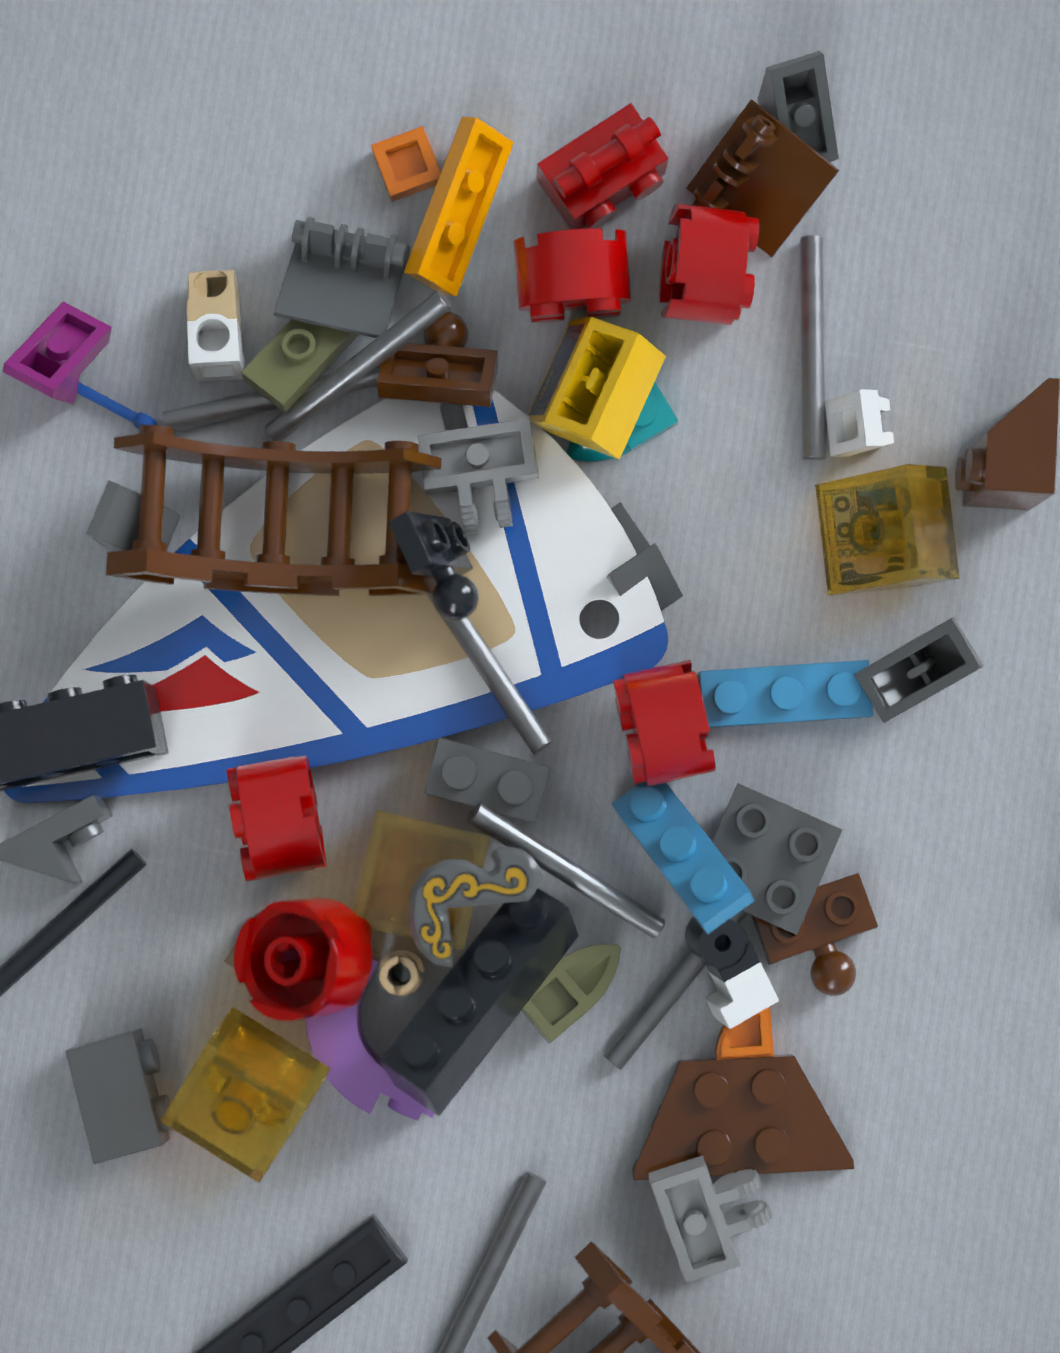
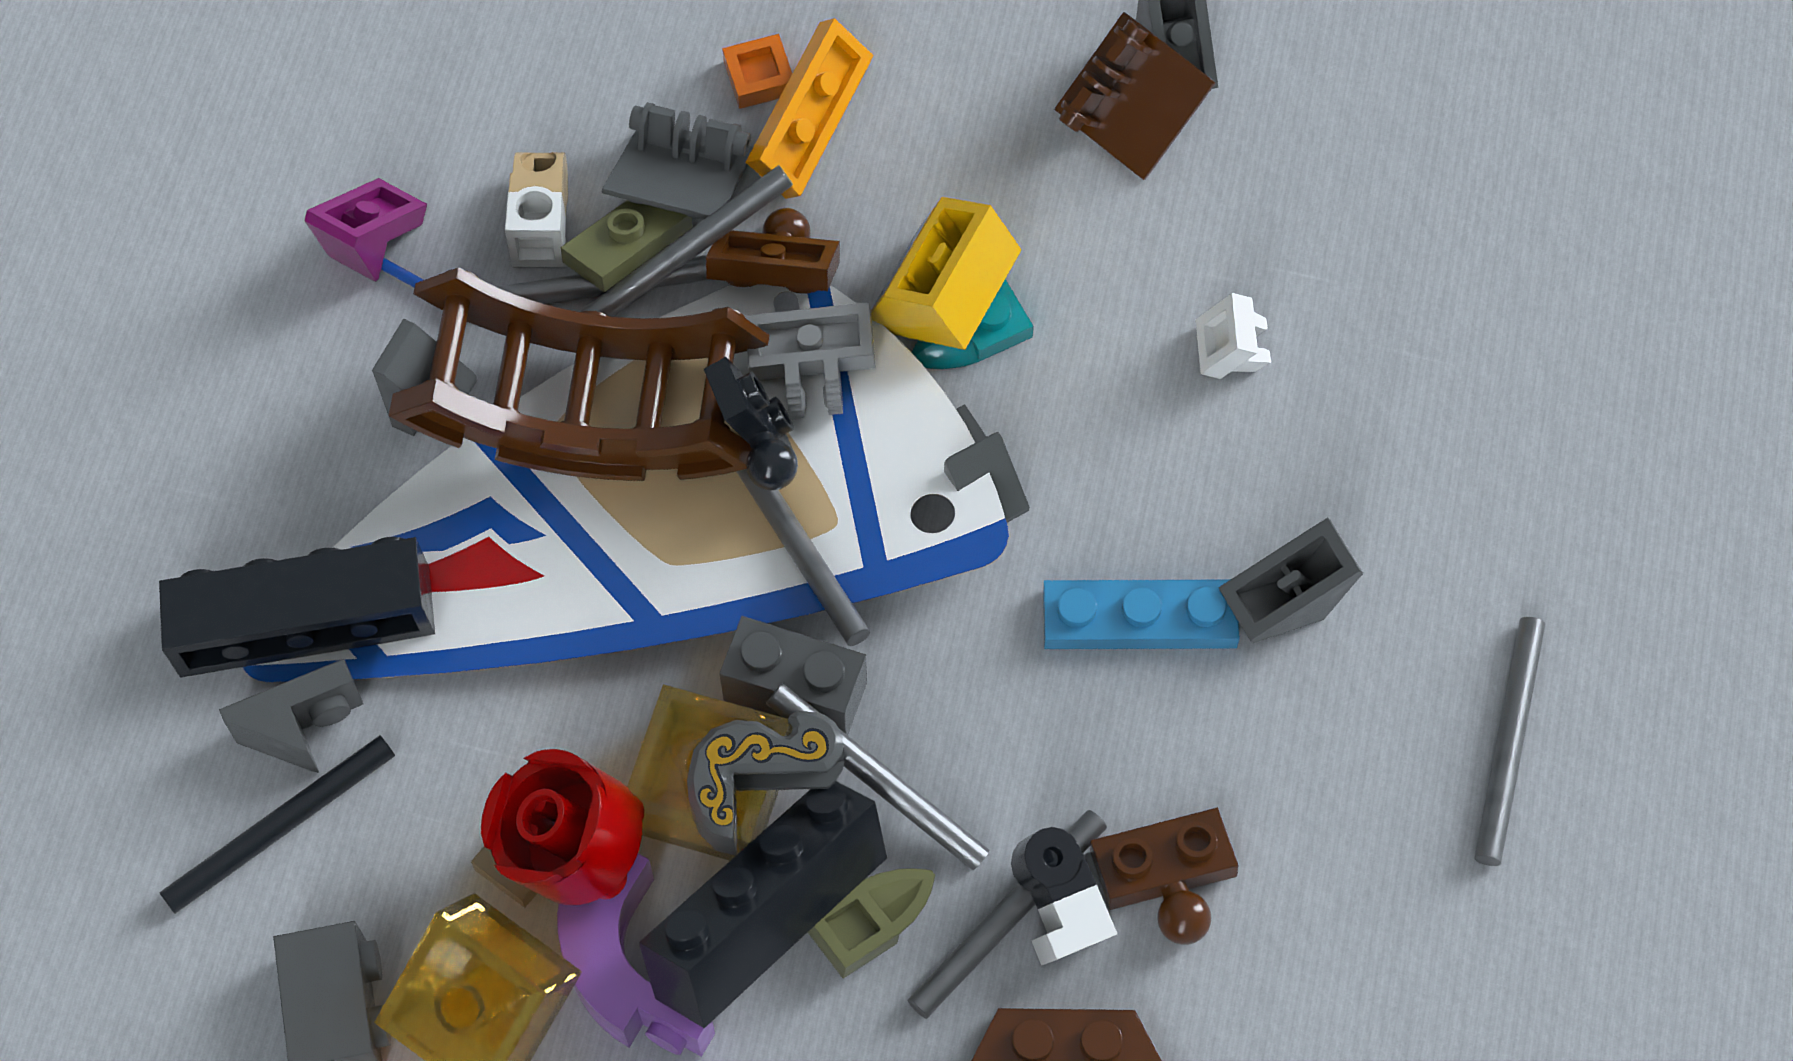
camera: 10 degrees right, 20 degrees down
(276, 817) = (551, 692): red brick -> none
(392, 983) = (674, 867): tan pin -> none
(572, 273) = (920, 160): red brick -> none
(604, 169) = (966, 79): red brick -> none
(667, 723) = (998, 621): red brick -> none
(683, 854) = (1013, 760): dark azure plate -> none
(707, 265) = (1072, 168): red brick -> none
(748, 1039) = (1080, 981): orange tile -> none
(775, 854) = (1109, 778): dark grey hinge -> none
(812, 348) = (1184, 268): flat silver bar -> none
(887, 530) = (1261, 444): clear yellow slope -> none
(1016, 458) = (1398, 367): reddish brown slope -> none

